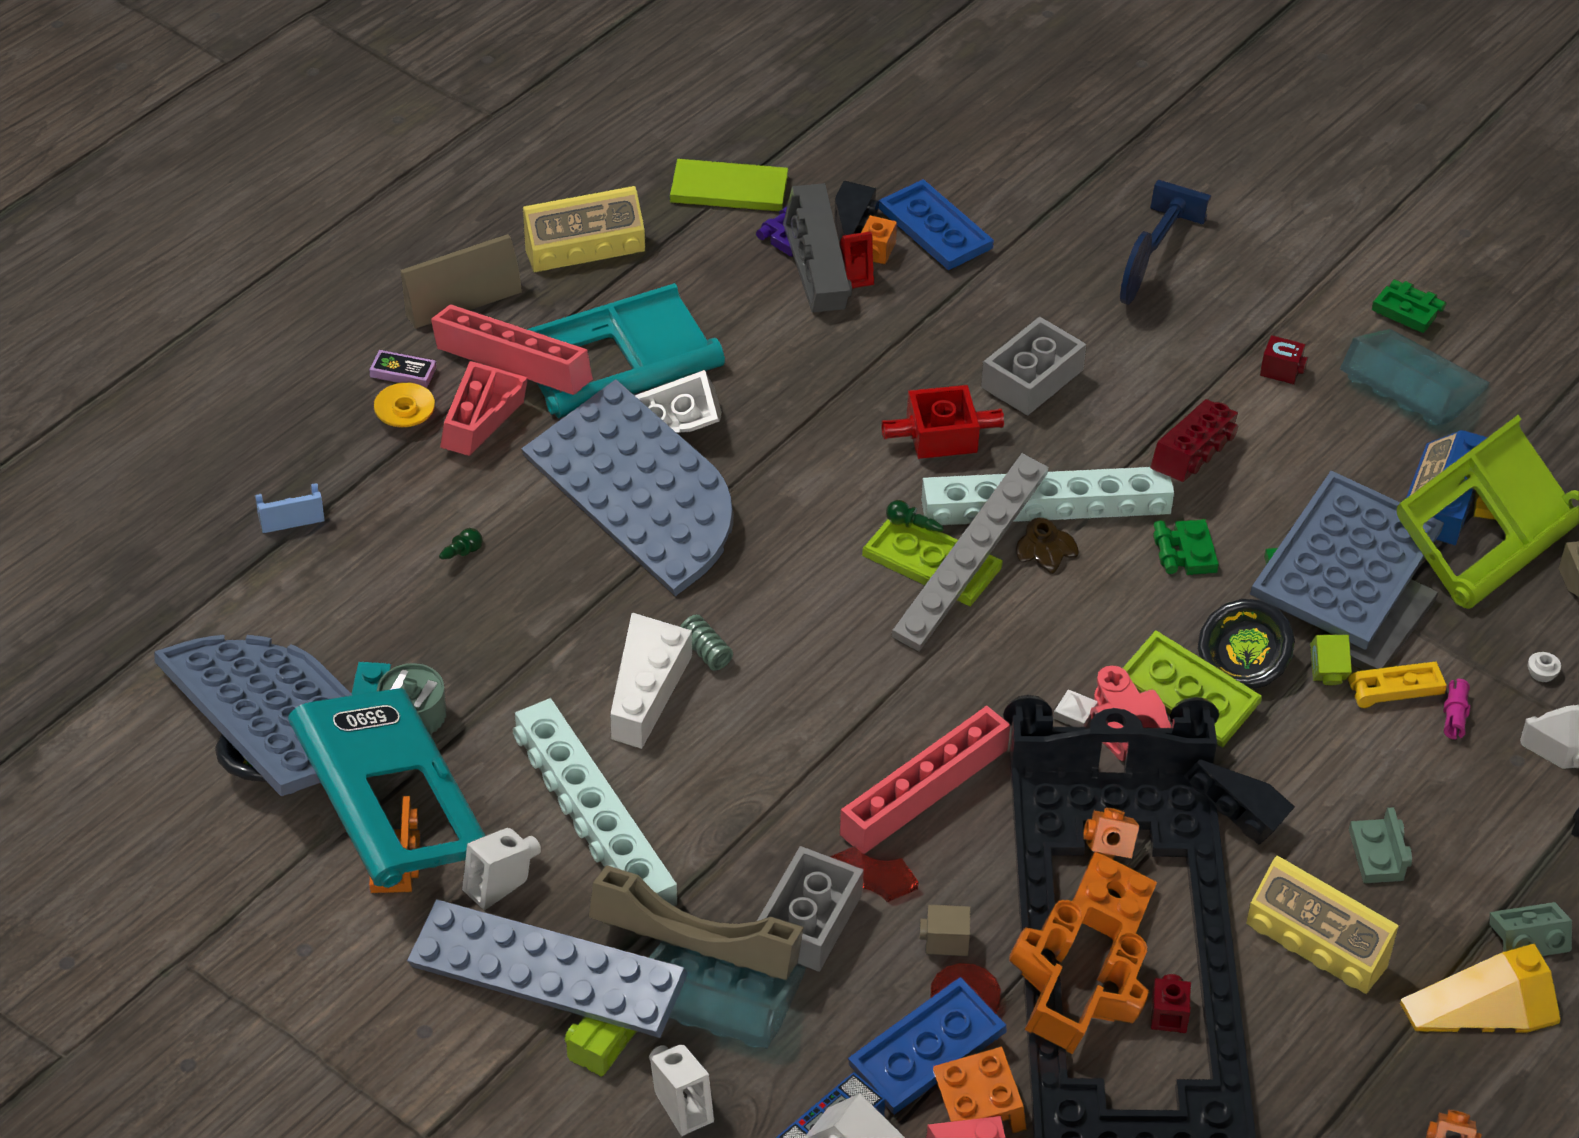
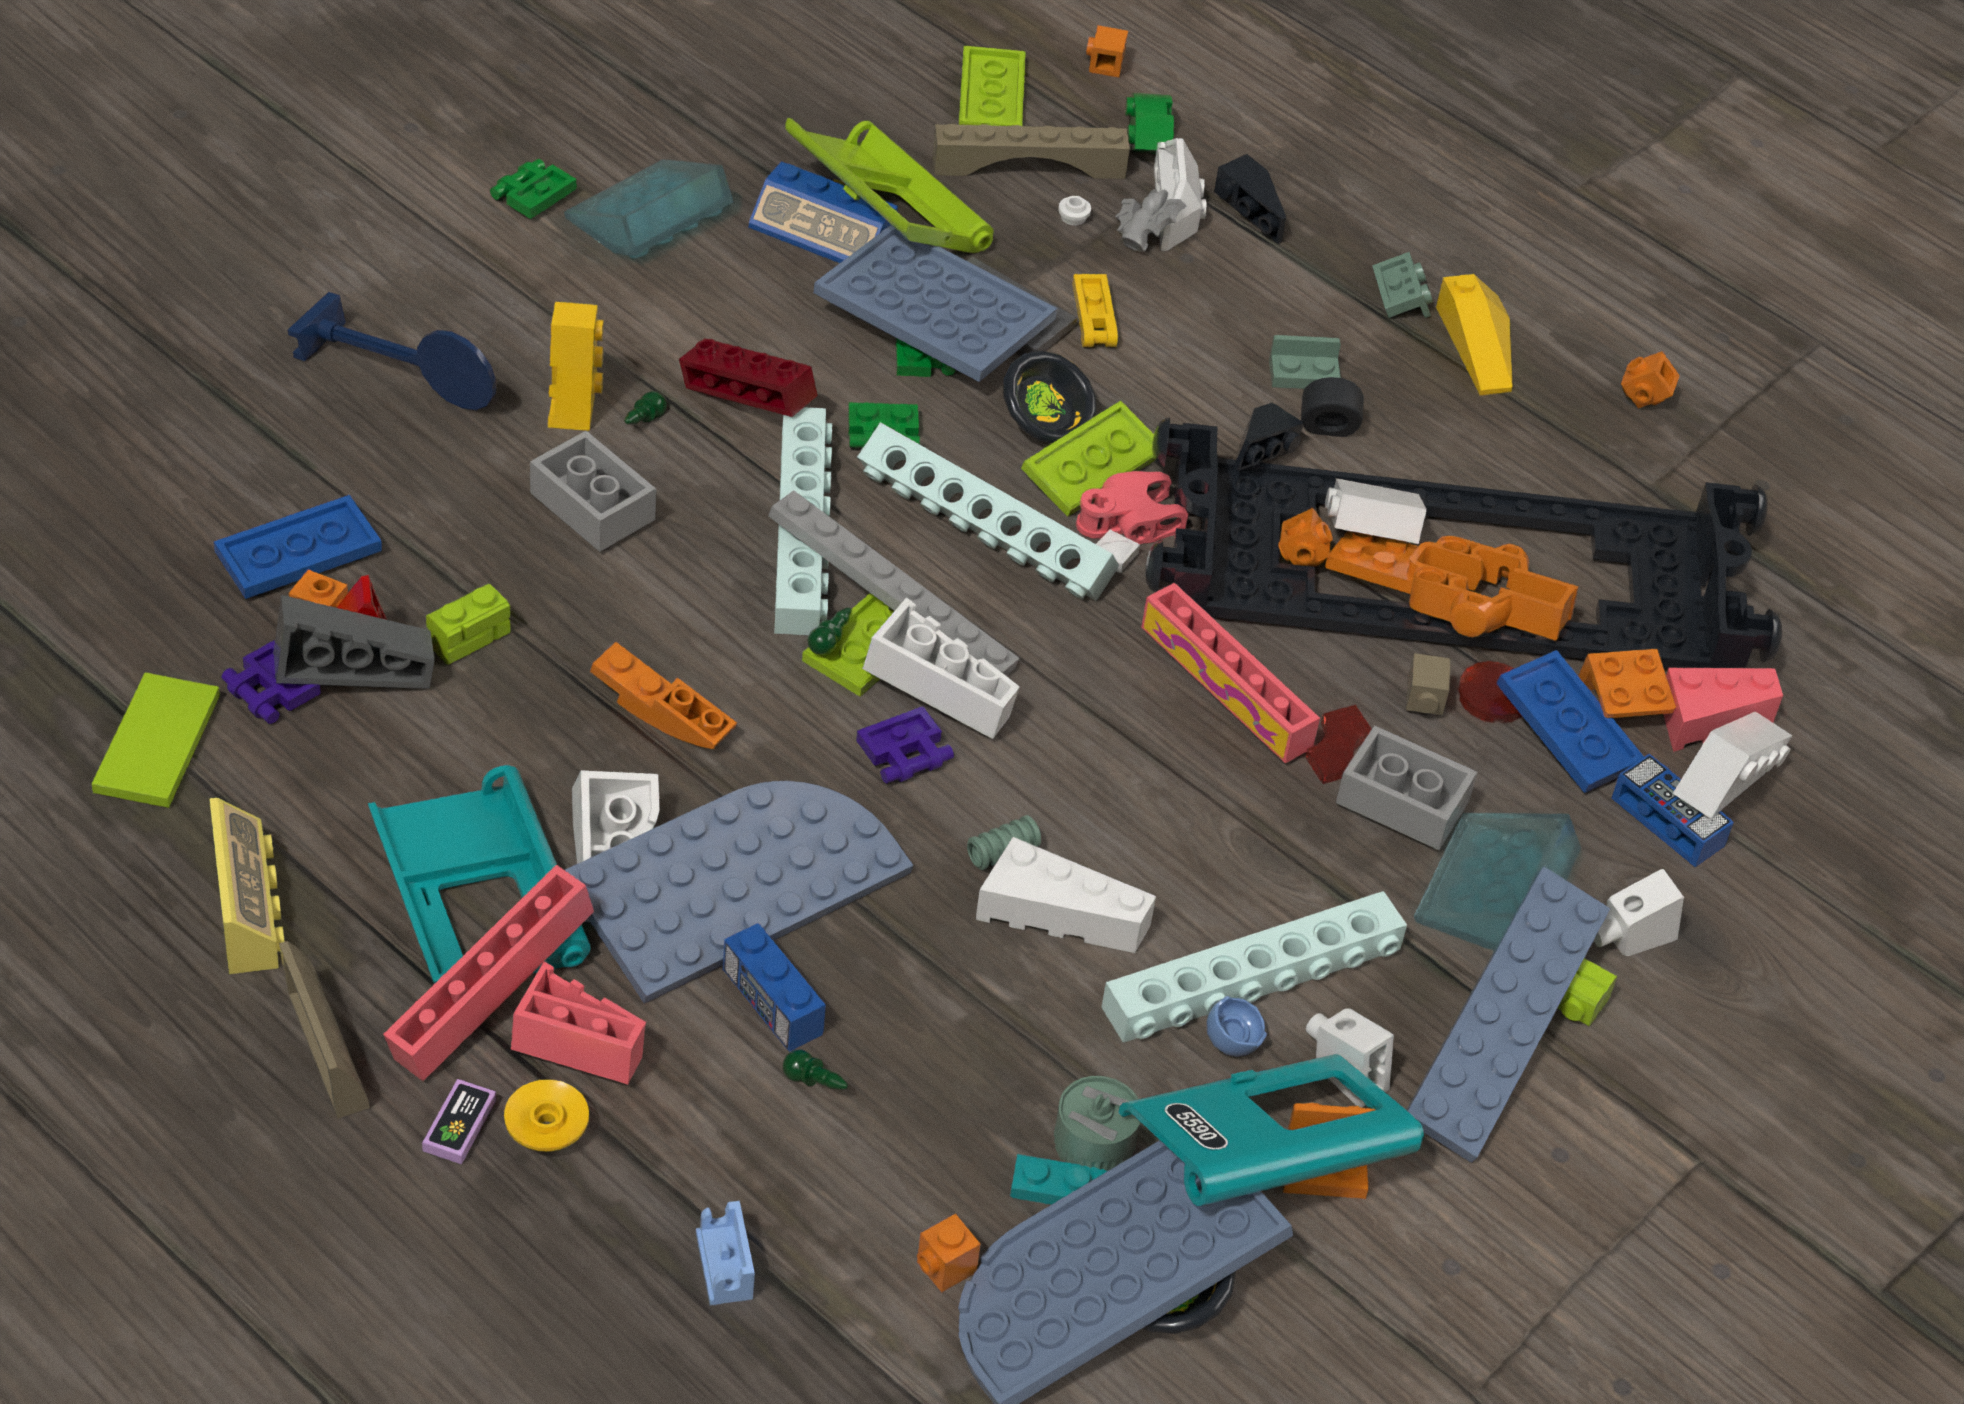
camera: 90 degrees left, 0 degrees up
(291, 622) = (948, 1252): none -> orange brick
(523, 790) = (1235, 1026): none -> medium blue hair
(532, 512) = (773, 987): none -> blue brick
(629, 903) = (1427, 920): dark tan arch -> none
(811, 573) = (902, 735): none -> dark purple plate
(820, 429) = (666, 706): none -> orange slope
(853, 207) = (246, 616): black slope -> none
(871, 316) = (468, 623): none -> lime brick
(880, 578) = (940, 671): none -> white wedge
(942, 422) = (676, 583): red brick -> none
(1046, 548) = (872, 530): dark brown plate -> none
(1084, 609) = (889, 447): none -> light aqua brick
(1162, 885) = (1376, 510): none -> white brick
(1163, 333) = (574, 365): none -> yellow wedge
(1163, 402) = (647, 408): none -> dark green bar
(1171, 997) = (1503, 531): dark red brick -> none
(1283, 360) = (612, 294): dark red brick -> none
(1309, 851) = (1332, 407): none -> black tyre
(1322, 925) = (1418, 413): slope -> none
(1330, 658) = (1070, 340): lime brick -> none
(1456, 708) = (1131, 277): dark pink pin -> none
(1519, 706) = (1151, 218): none -> light grey animal

